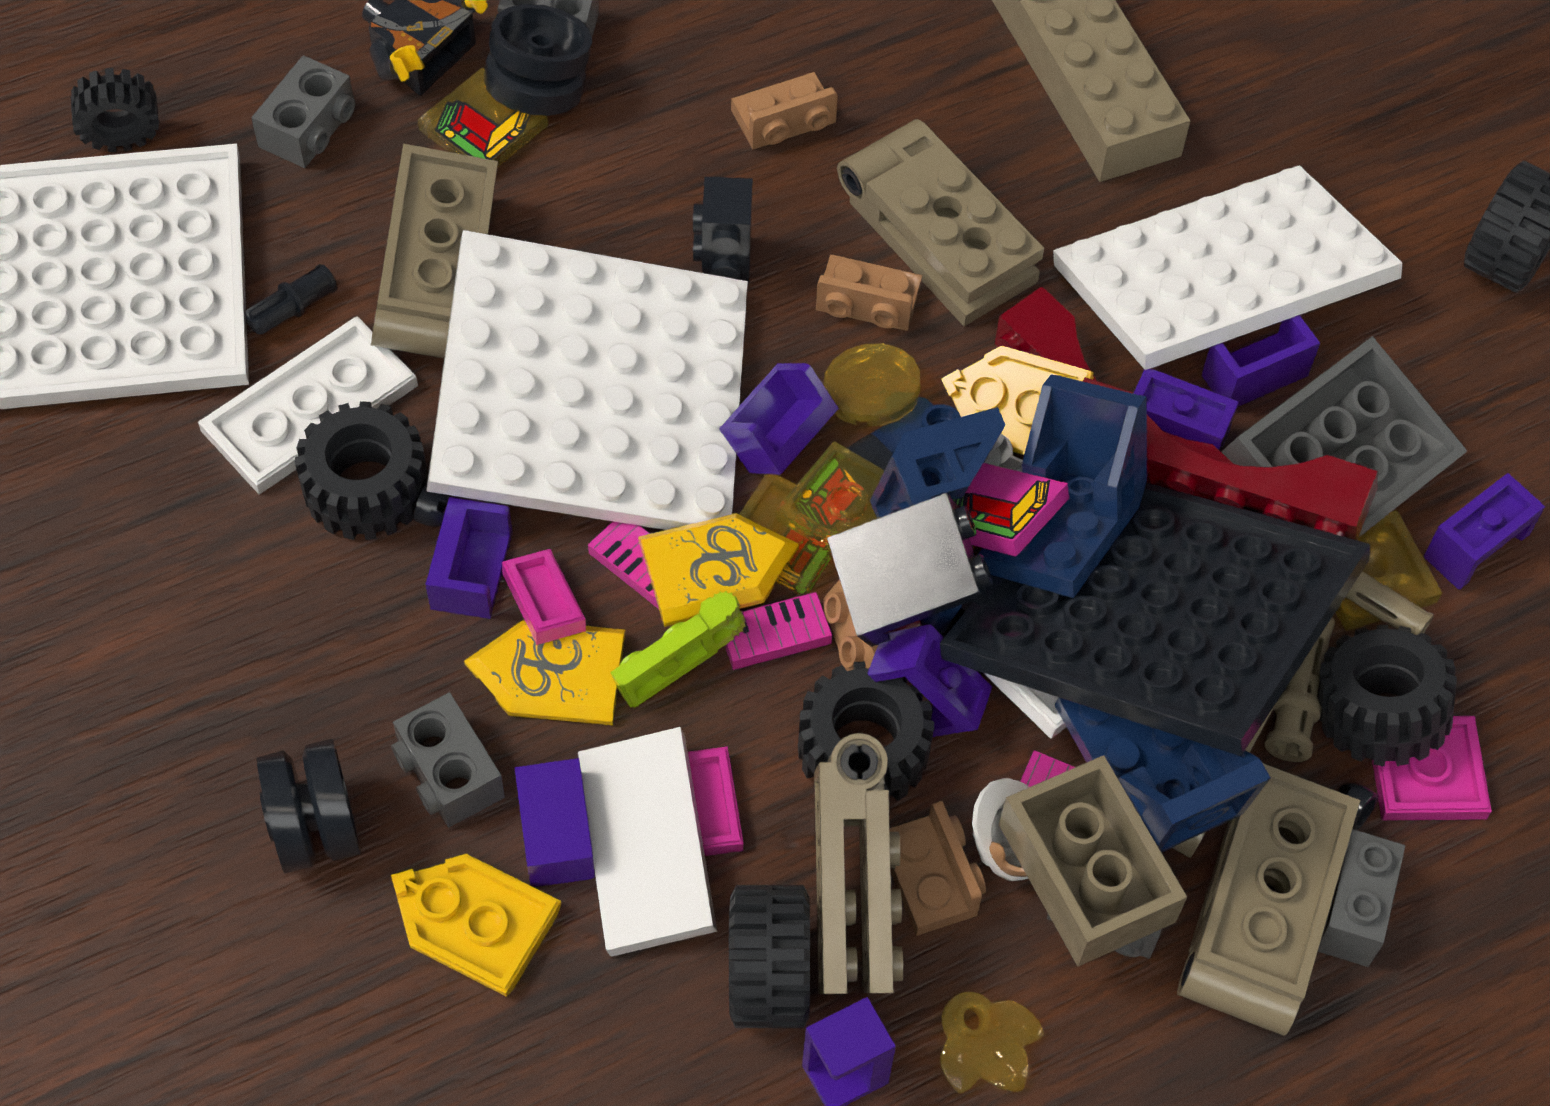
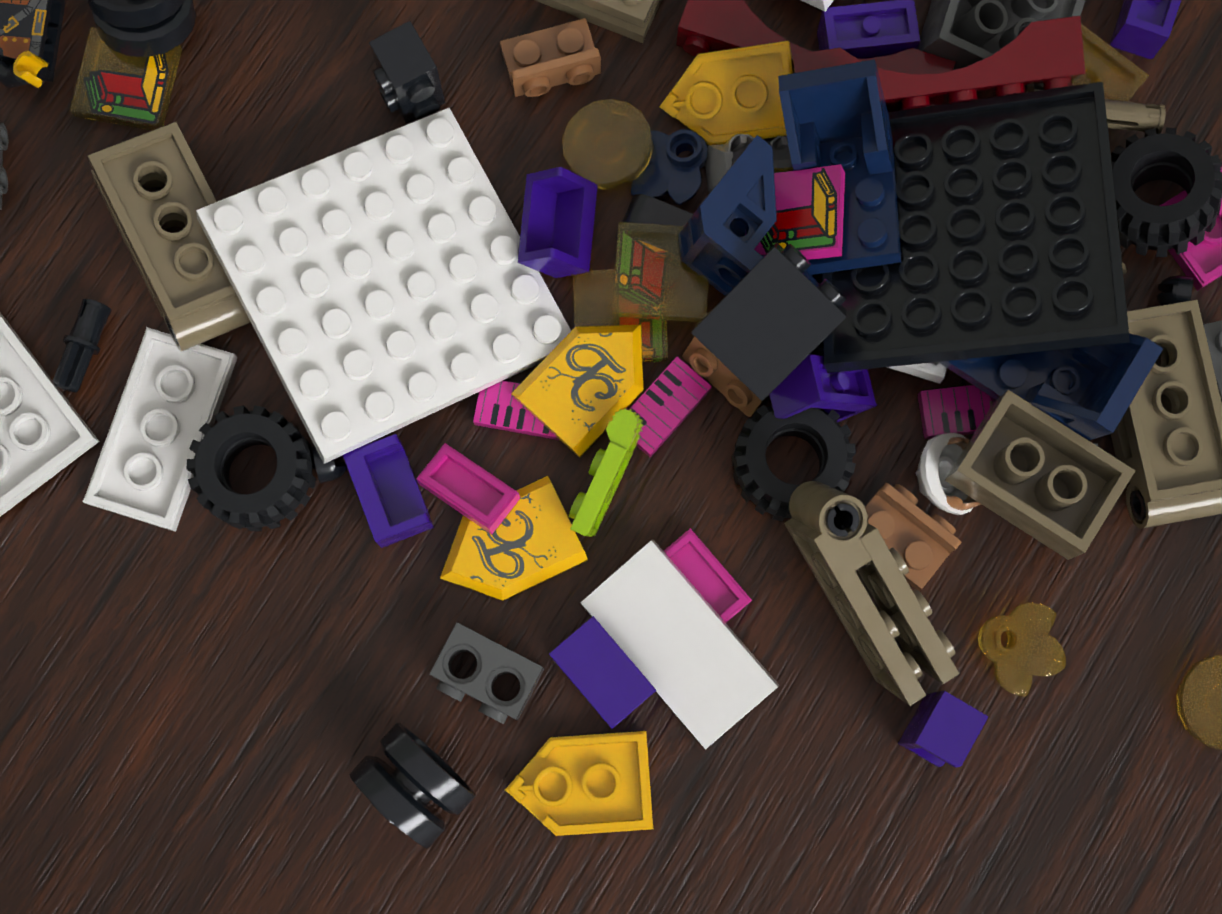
camera: 30 degrees left, 20 degrees up
(769, 956) = (842, 691): black tyre -> none

